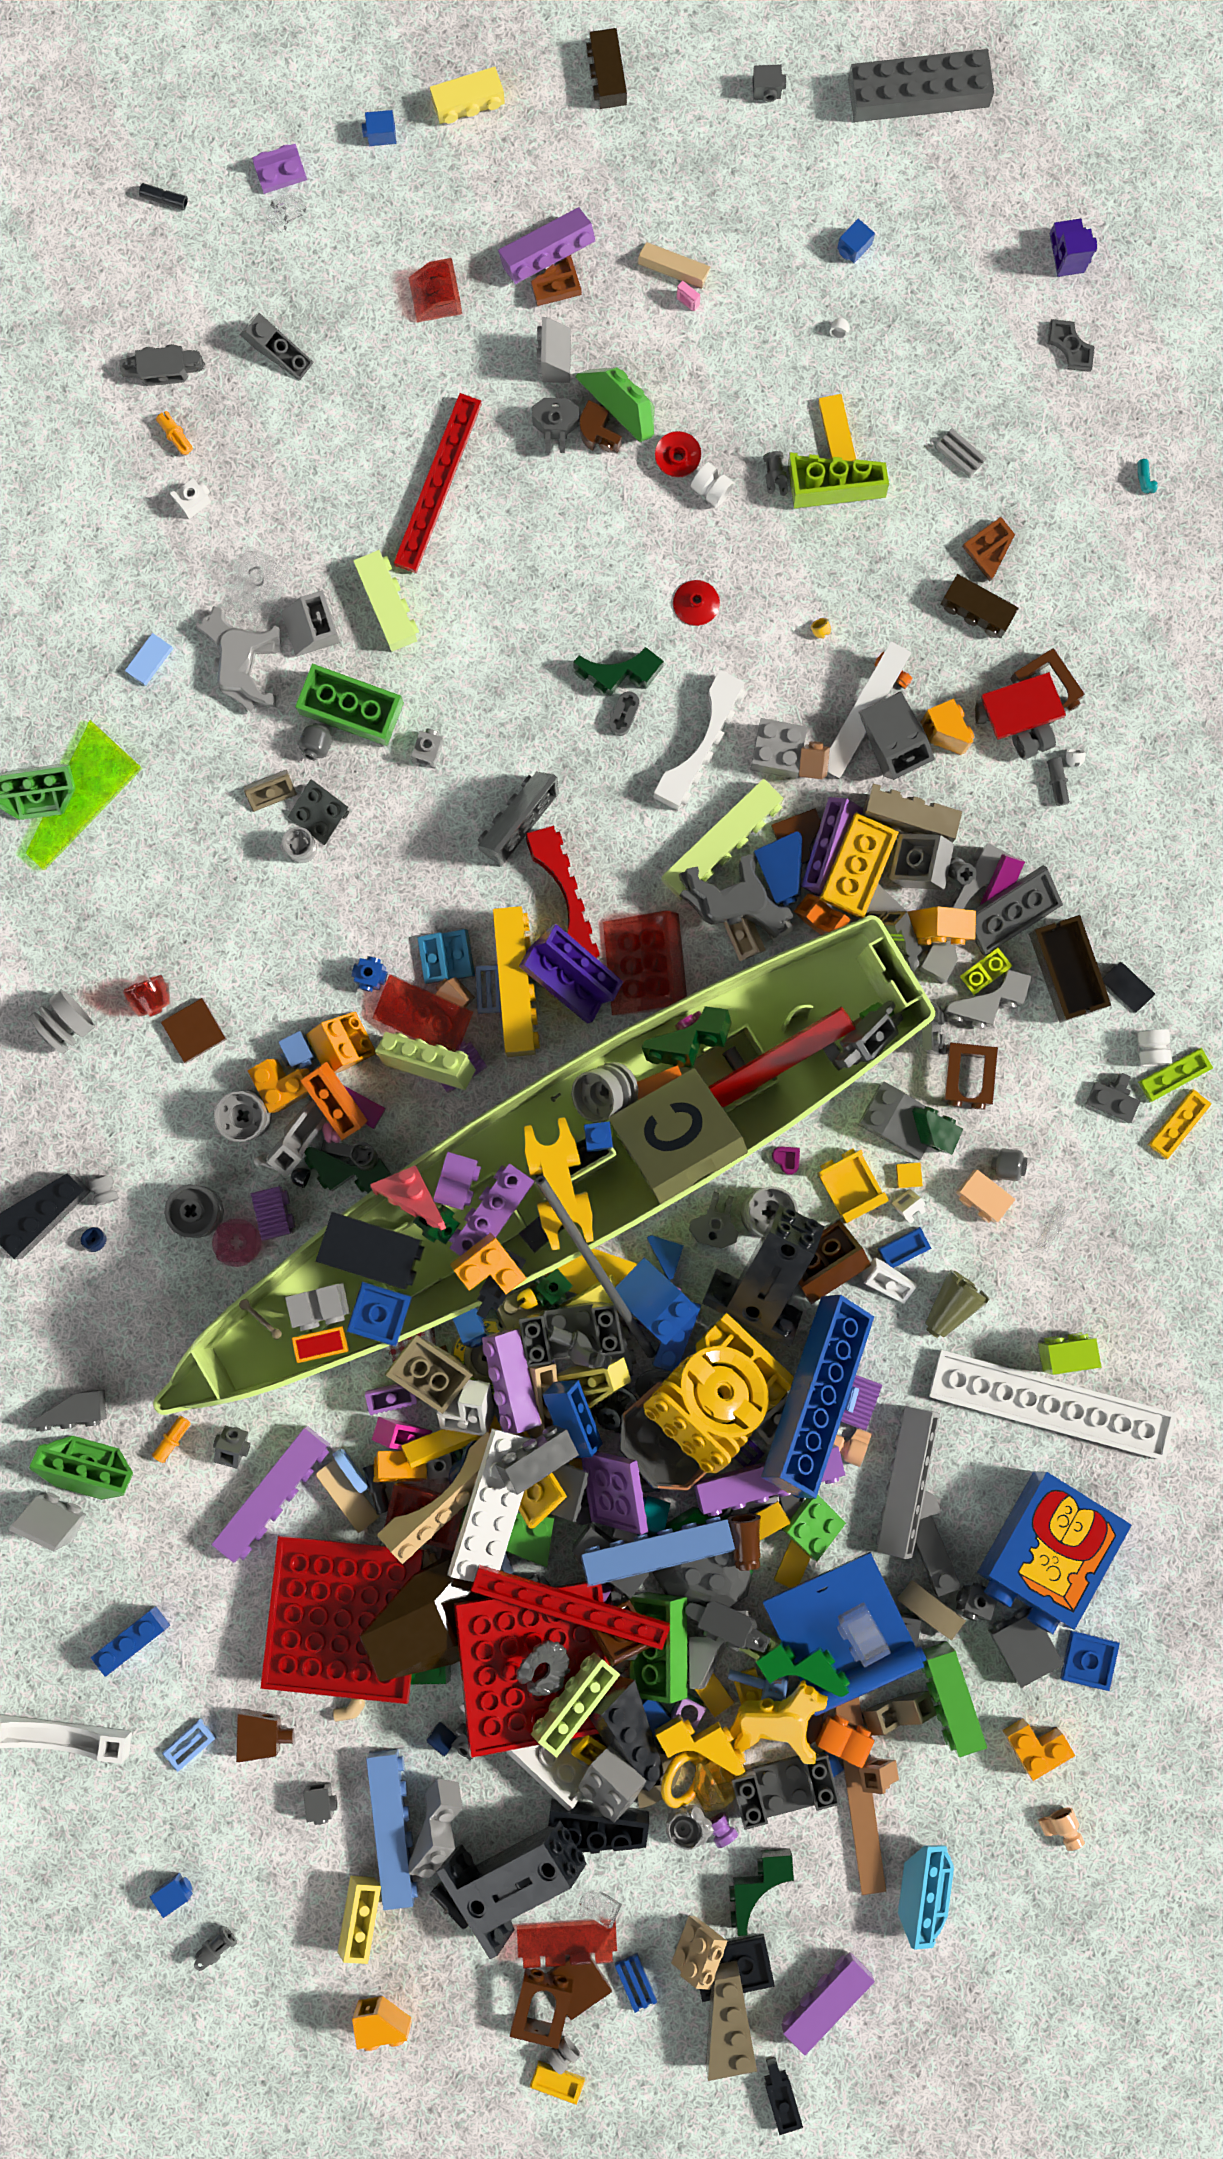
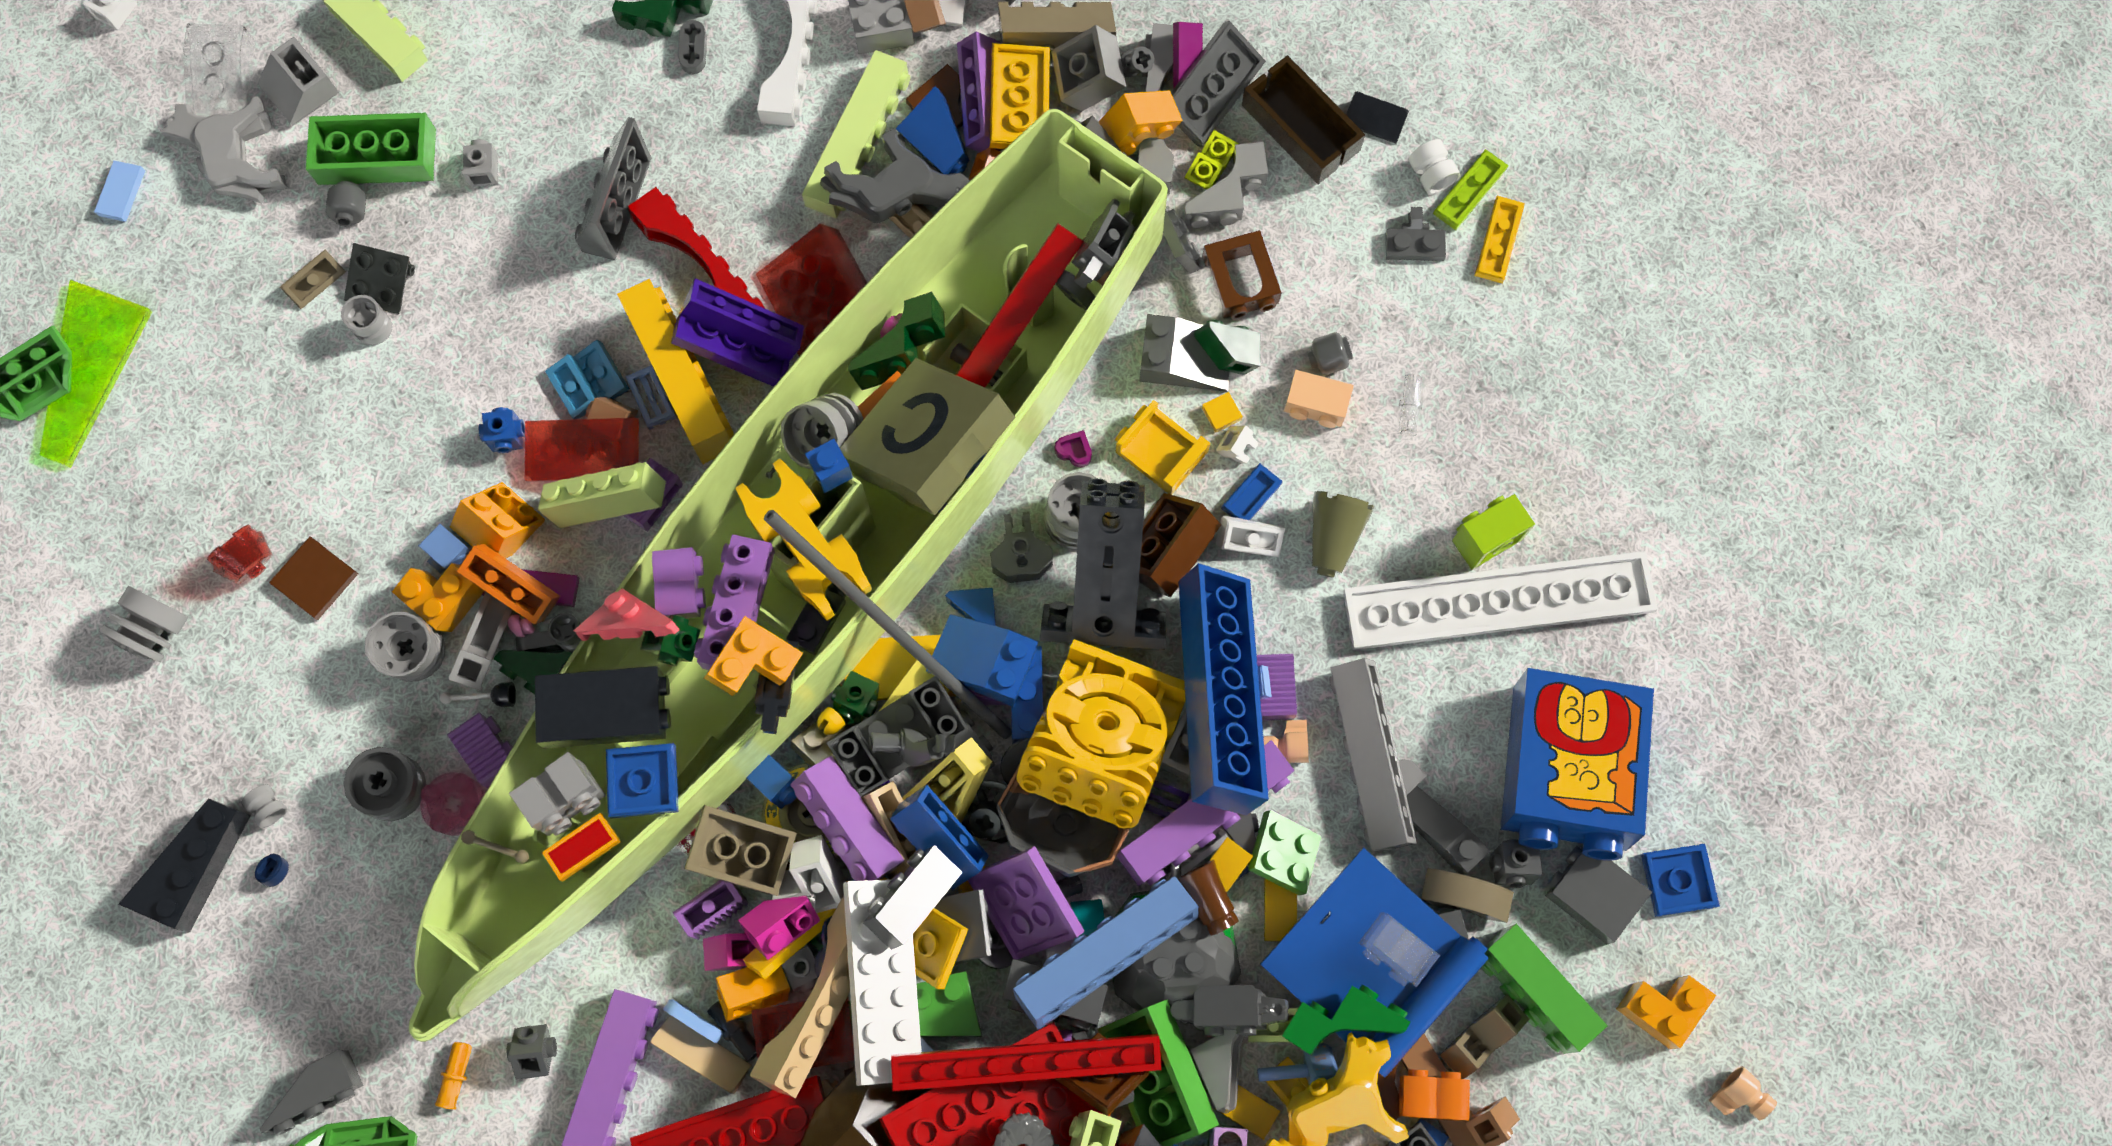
camera: 20 degrees left, 10 degrees down
(435, 1432) = (778, 923): none -> dark pink slope

